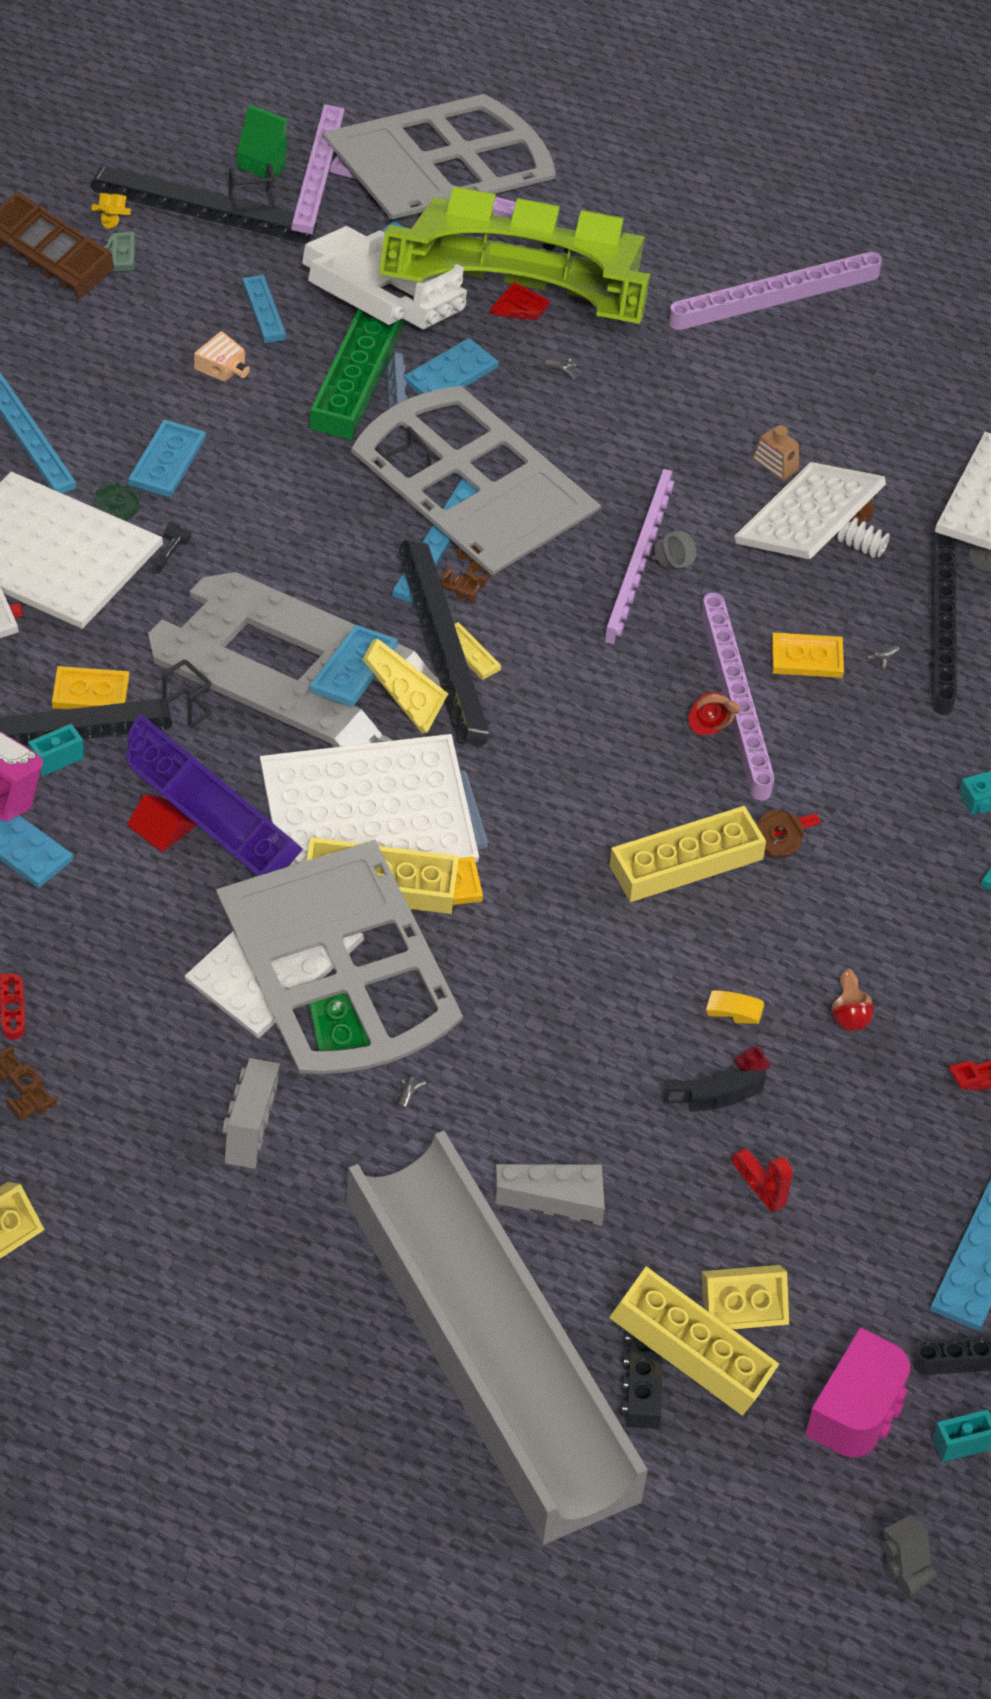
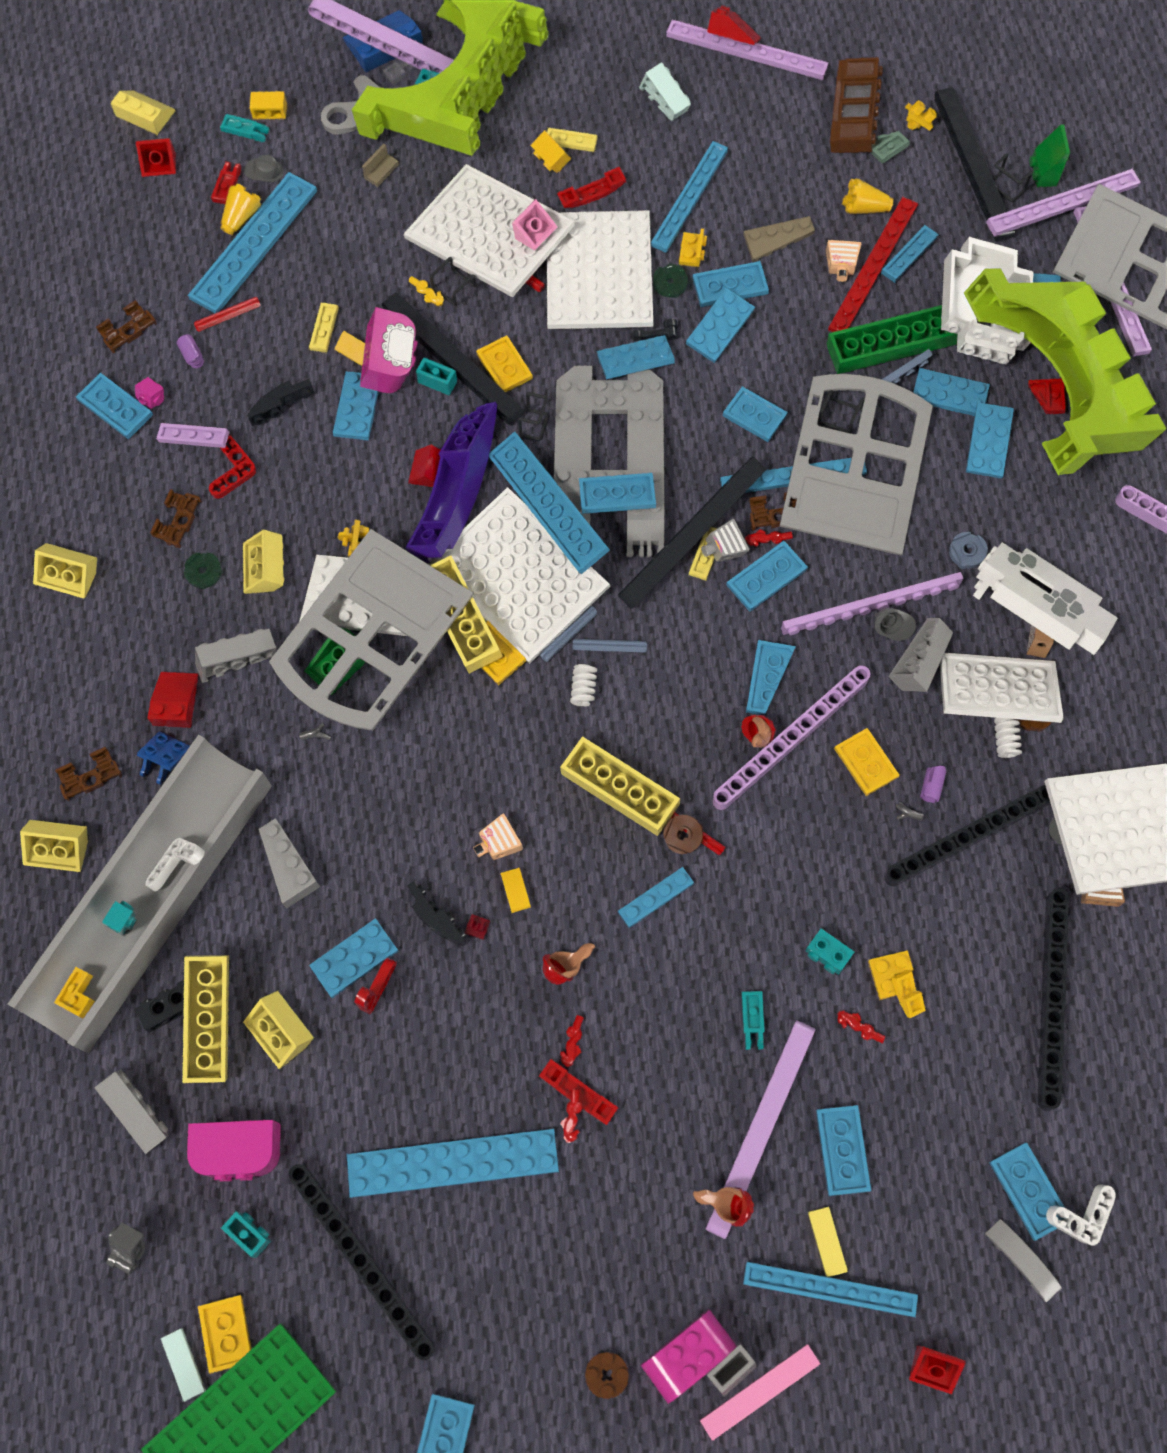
camera: 65 degrees right, 20 degrees up
(93, 463) = (691, 249): none -> yellow bracket
(110, 1104) = (203, 560): none -> clear green plate
(142, 395) = (770, 238): none -> dark tan wing
(152, 1029) = (263, 562): none -> light yellow slope
(167, 302) = (865, 199): none -> yellow cone
(185, 578) = (635, 357): none -> dark azure plate
(195, 930) = (357, 531): none -> yellow hips
(212, 492) = (720, 325): none -> dark azure plate
(254, 347) = (873, 265): none -> red plate
(260, 1200) = (173, 700): none -> red slope
(297, 1319) = (74, 786): none -> reddish brown piece
(312, 727) = (548, 503): none -> dark azure plate
(321, 1237) = (163, 751): none -> blue plate
(342, 524) = (755, 414): none -> dark azure plate
(356, 1406) = (53, 845): none -> light yellow slope
(408, 686) = (629, 539): light yellow wing -> none
(476, 622) = (725, 543): none -> light grey torso
(476, 1267) = (178, 850): none -> white beam
(488, 600) = (761, 537): none -> red animal
(512, 784) = (609, 645): none -> sand blue axle
(516, 1359) = (120, 917): none -> teal brick
(533, 372) = (989, 440): none -> dark azure plate
(539, 617) = (766, 576): none -> dark azure plate
(544, 826) = (582, 684): none -> white piece
(561, 365) = (1013, 454): flat silver bar -> none
(575, 1460) = (72, 995): none -> yellow plate
(646, 464) = (971, 541): none -> sand blue plate
(646, 674) = (768, 669): none -> dark azure wing
(666, 988) = (498, 839): none -> light nougat torso
(708, 1190) = (353, 958): none -> dark azure plate
(732, 548) = (922, 657): none -> light grey wedge
(745, 420) = (1066, 614): none -> white panel
(745, 1477) = (132, 1111): none -> light grey wedge
(828, 898) = (655, 897): none -> dark azure plate
(870, 619) = (933, 784): none -> medium lavender arm
(928, 1041) = (572, 1050): none -> red animal

